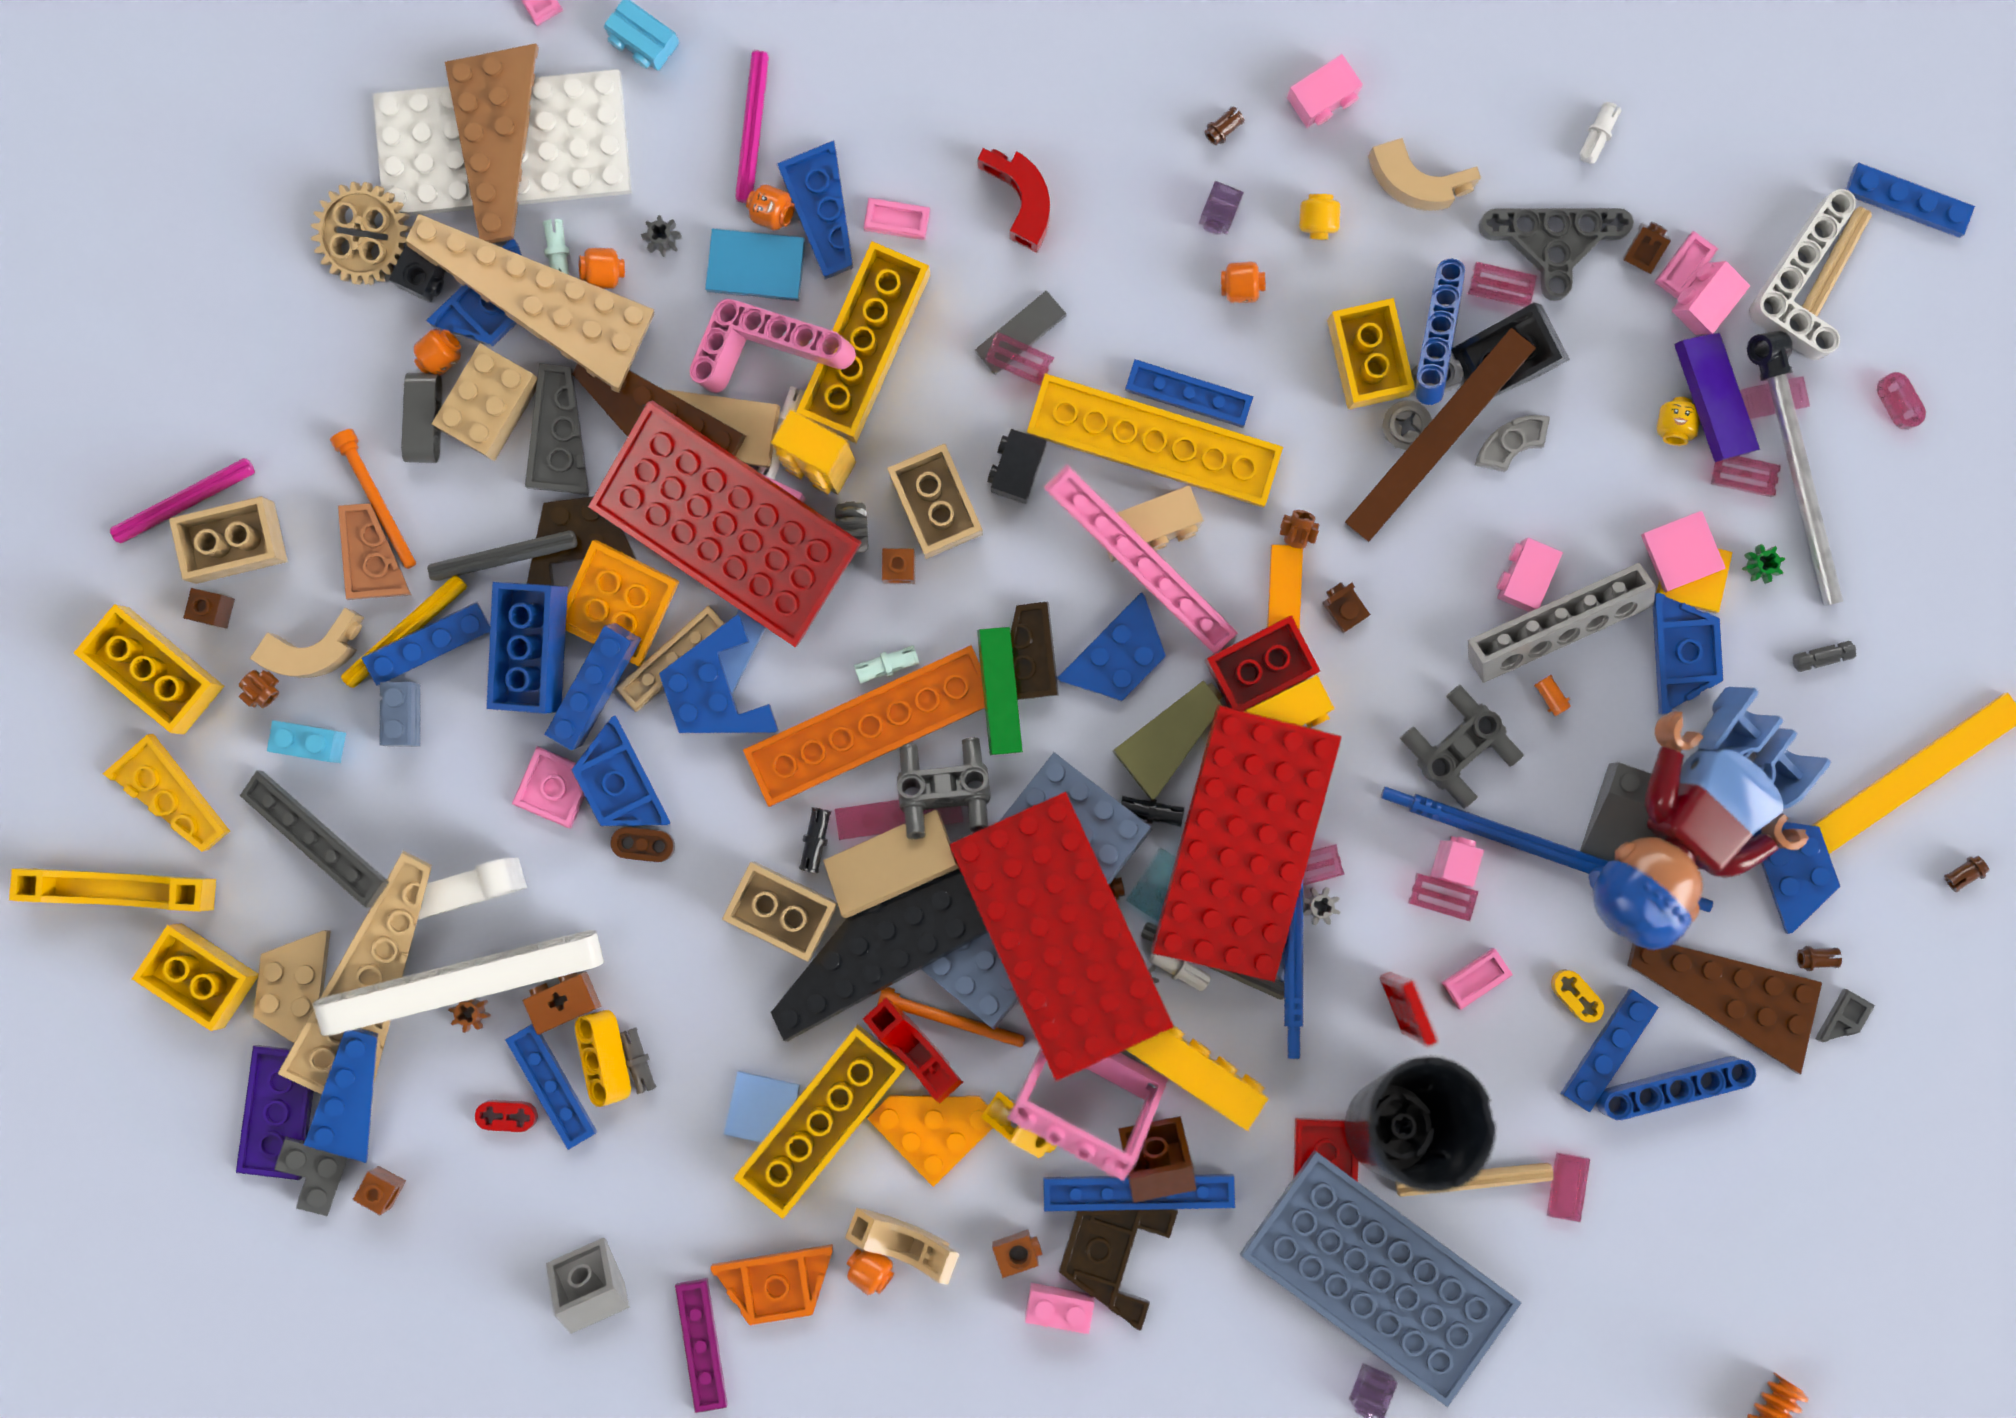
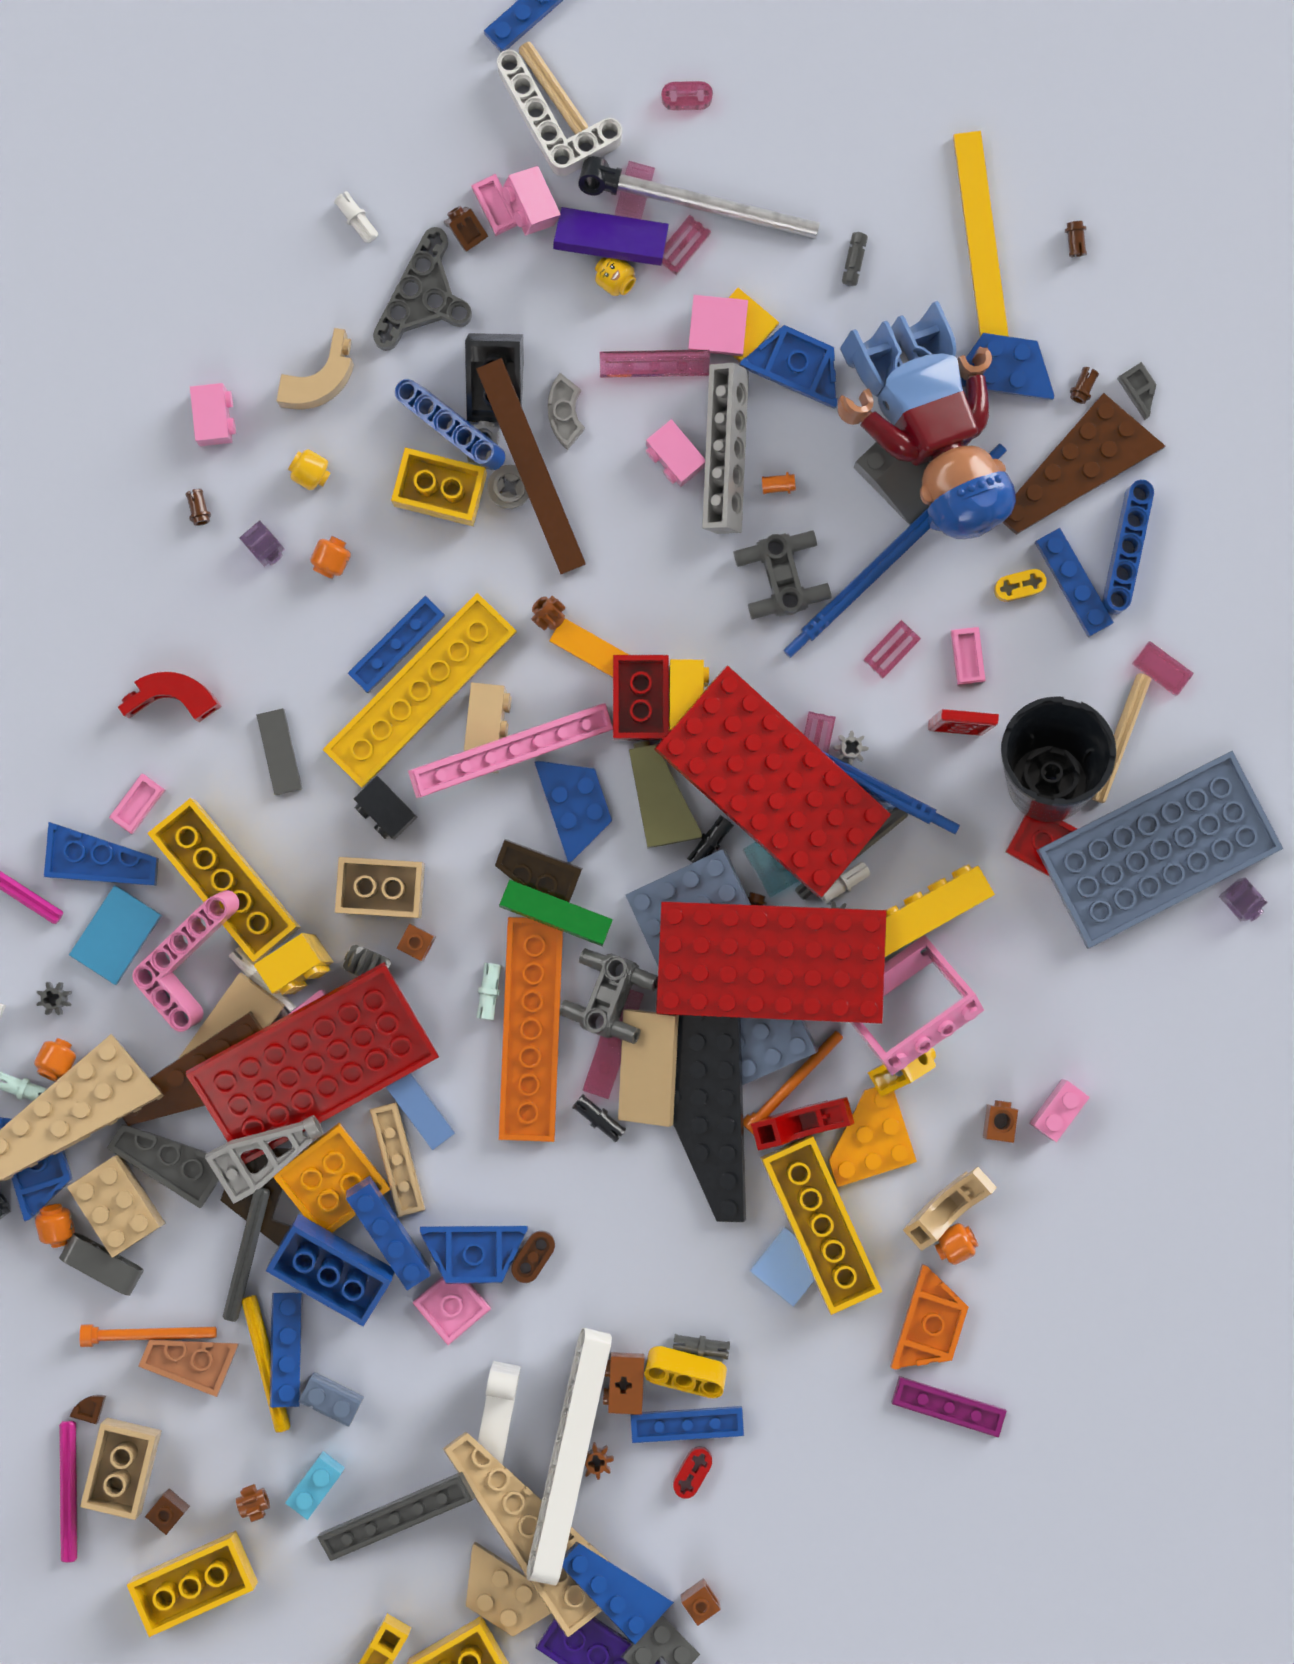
camera: 70 degrees left, 0 degrees up
(161, 784) = (288, 1620): yellow wing -> none
(273, 480) = (89, 1409): none -> reddish brown tile
(312, 661) = (254, 1442): tan arch -> none
(576, 500) = (233, 1172): none -> light grey plate
(586, 1286) = (857, 1474): light grey slope -> none
(701, 692) = (437, 1149): blue wing -> none
(770, 207) = (76, 899): orange head -> none
(780, 911) = (641, 1173): tan brick -> none
(1042, 369) = (317, 750): clear pink tile -> none
(1100, 1251) = (1030, 1055): dark brown wing -> none
(1112, 1193) = (1001, 1003): blue plate -> none
(1163, 1162) = (986, 972): reddish brown brick -> none
(1345, 606) = (627, 608): reddish brown bracket -> none
(1457, 861) = (869, 625): bright pink brick -> none
(1501, 296) = (444, 362): clear pink tile -> none
(1609, 507) = (654, 363): none -> clear pink tile
(1755, 565) = (760, 260): green gear -> none

